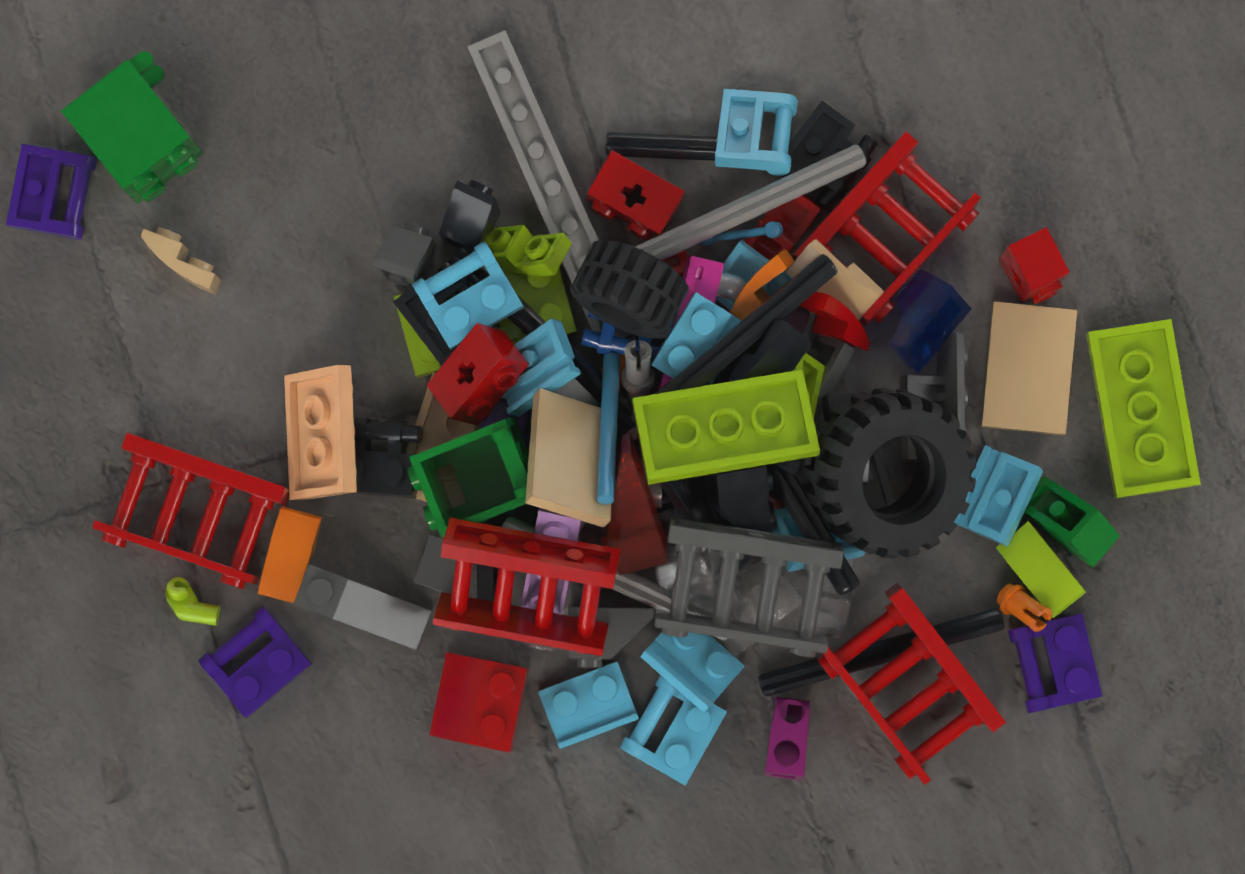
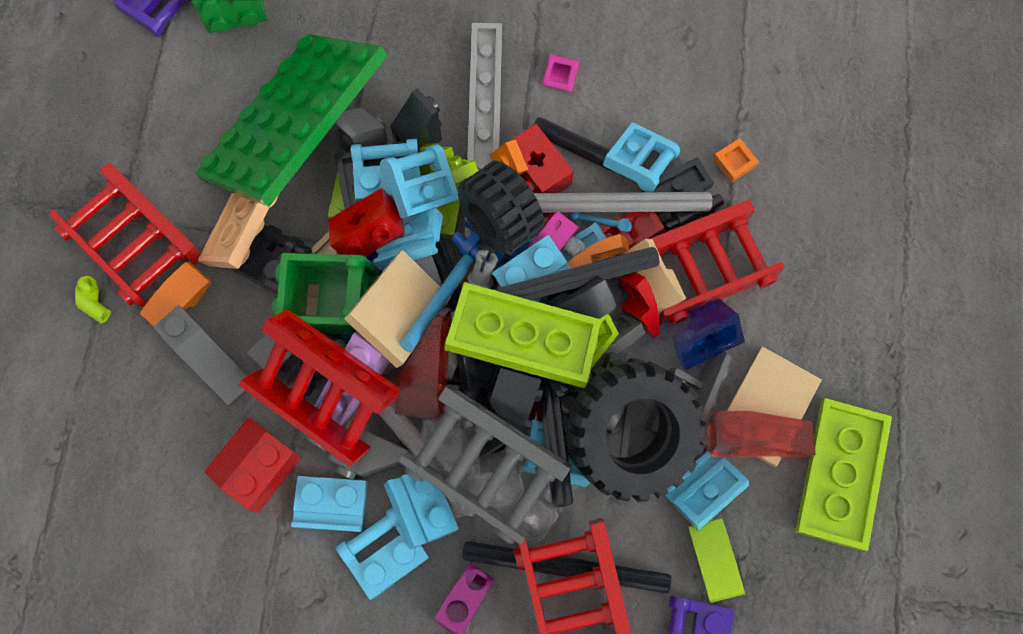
camera: 15 degrees right, 10 degrees down
(168, 249) = (208, 64): tan slope -> none
(265, 672) = (114, 371): dark purple plate -> none
(316, 278) = (290, 117): none -> green plate
(528, 303) = (424, 191): none -> medium azure plate
(601, 214) = (510, 155): none -> orange plate
(606, 57) = (561, 72): none -> dark pink slope
(868, 81) = (735, 160): none -> orange plate
(1015, 601) = (687, 577): orange pin -> none
(1032, 410) = (759, 435): none -> clear red slope
(1034, 267) = (805, 331): red brick -> none
(1071, 521) = (755, 534): green slope -> none

